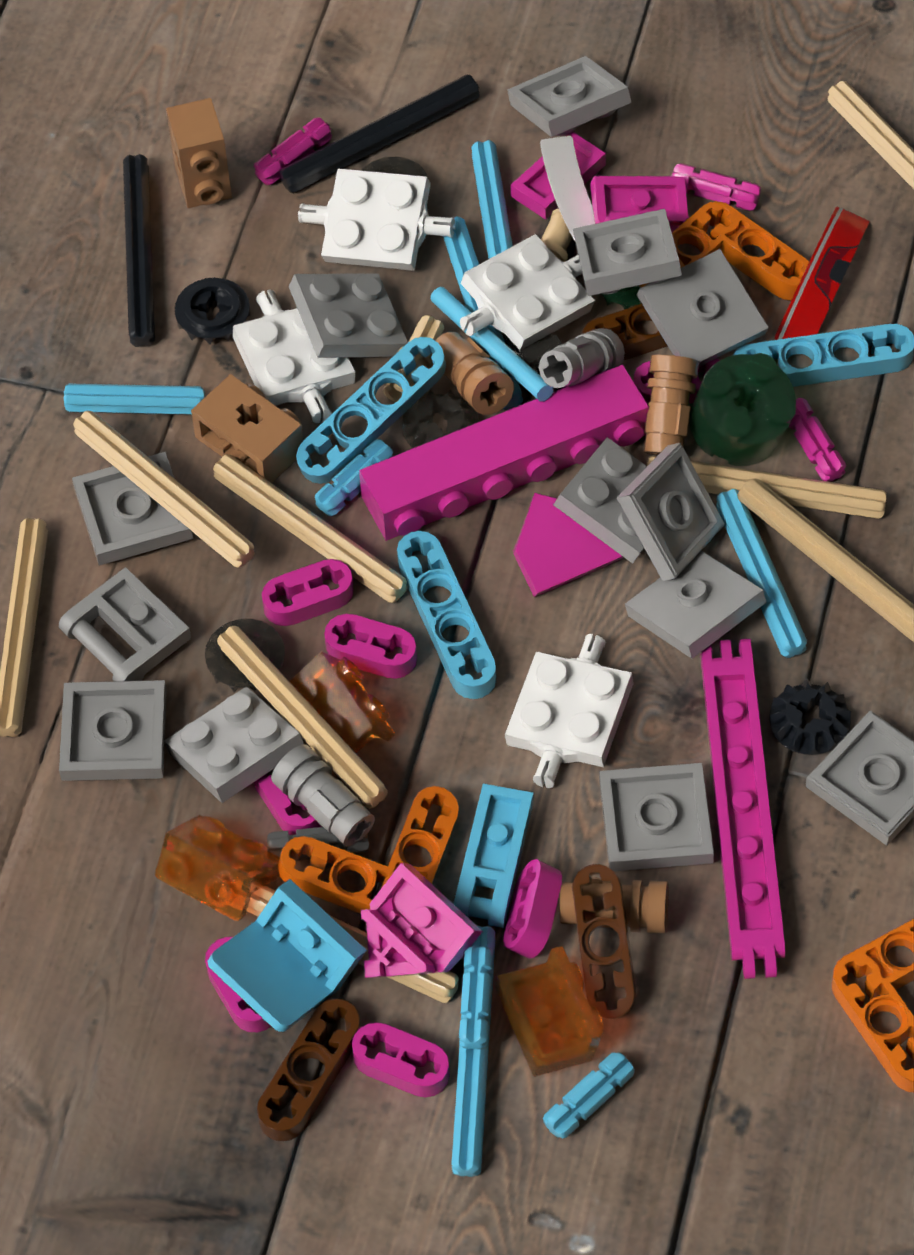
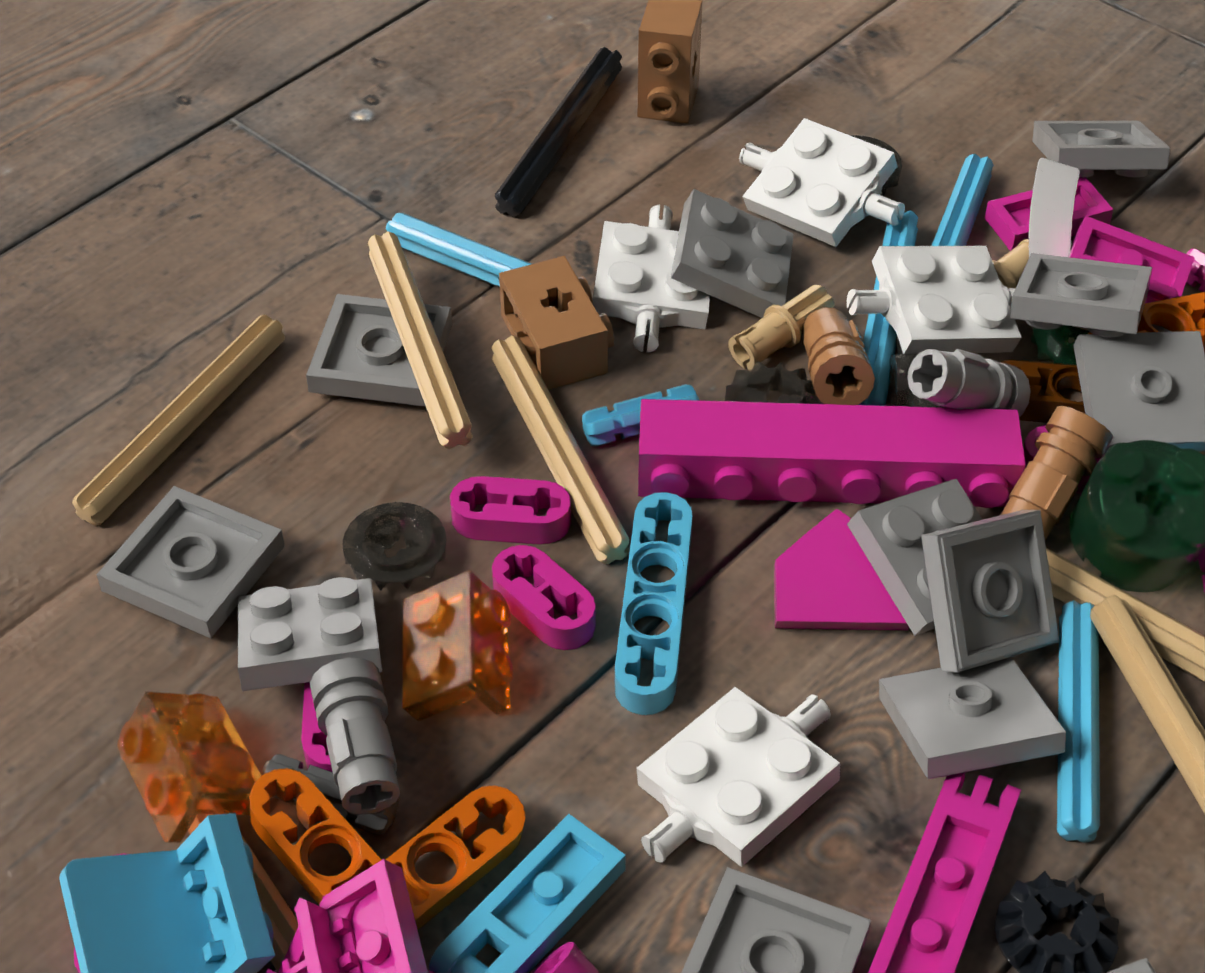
camera: 25 degrees right, 10 degrees down
(136, 617) = (305, 458): light grey plate -> none
(196, 302) = (590, 192): black gear -> none
(292, 149) = (774, 101): dark pink axle -> none
(302, 717) = (399, 641): tan axle -> none
(365, 404) = (694, 341): medium azure beam -> none
(379, 133) = (880, 116): black axle -> none
(494, 346) = (878, 345): medium azure bar -> none

